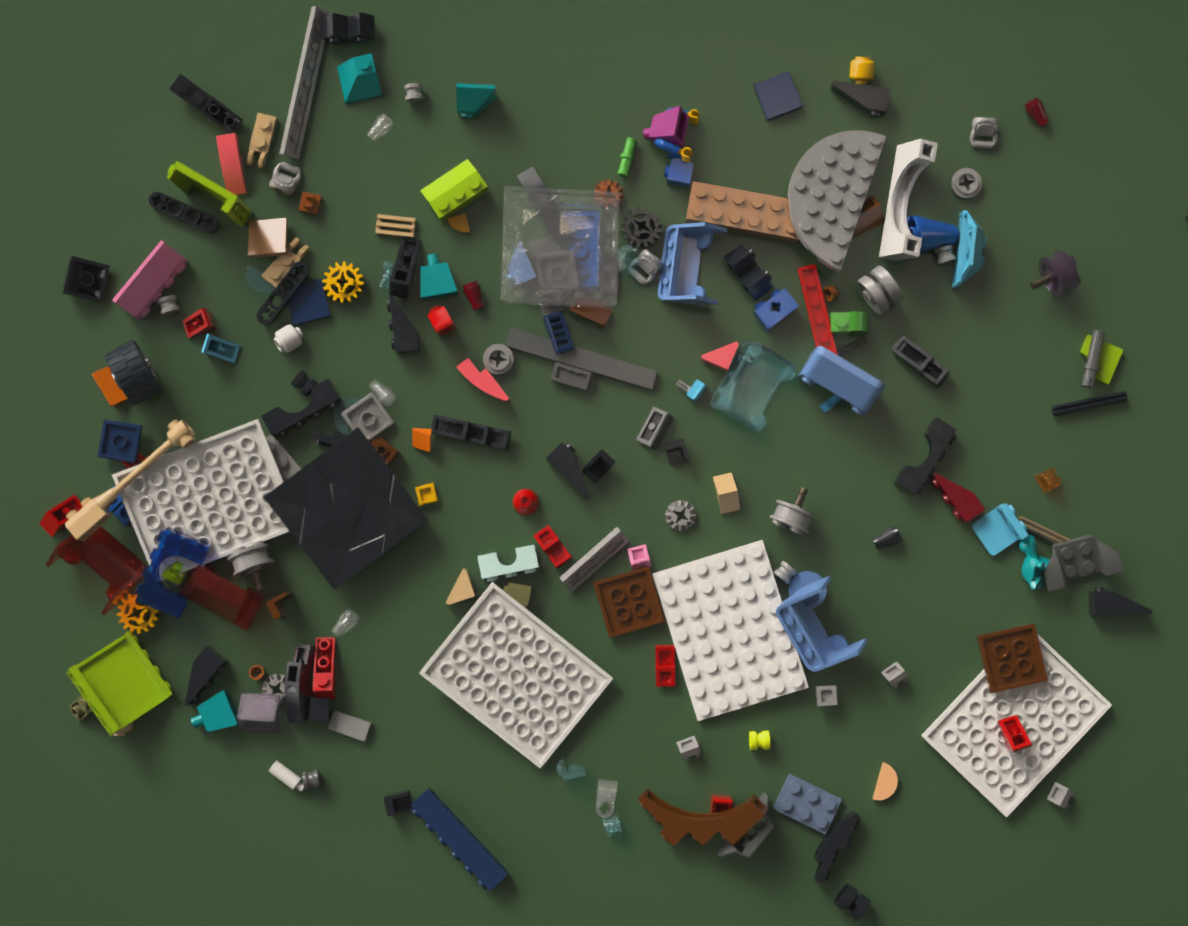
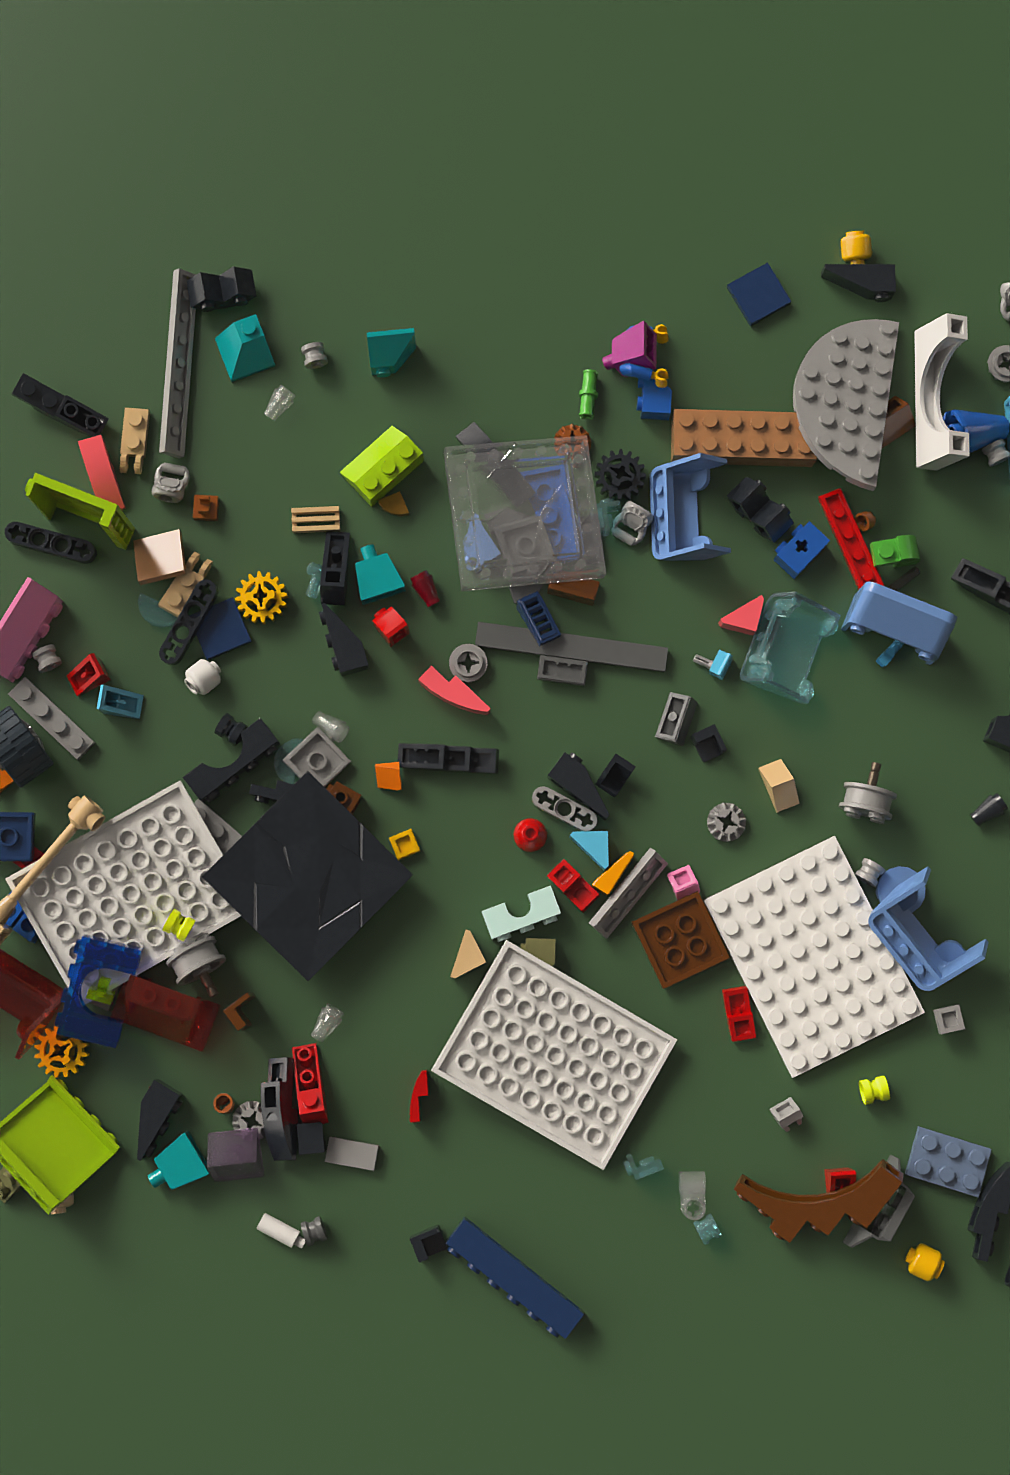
camera: 10 degrees left, 5 degrees down
(166, 352) = (51, 718): none -> light grey plate
(240, 531) = (178, 925): none -> neon yellow wheel
(409, 685) = (420, 1089): none -> red slope
(540, 481) = (551, 794): none -> light grey beam
(573, 517) = (594, 845): none -> medium azure slope
(584, 543) = (610, 877): none -> light orange slope
(775, 876) = (925, 1262): none -> yellow head
(879, 290) = (925, 506): light grey wheel -> none

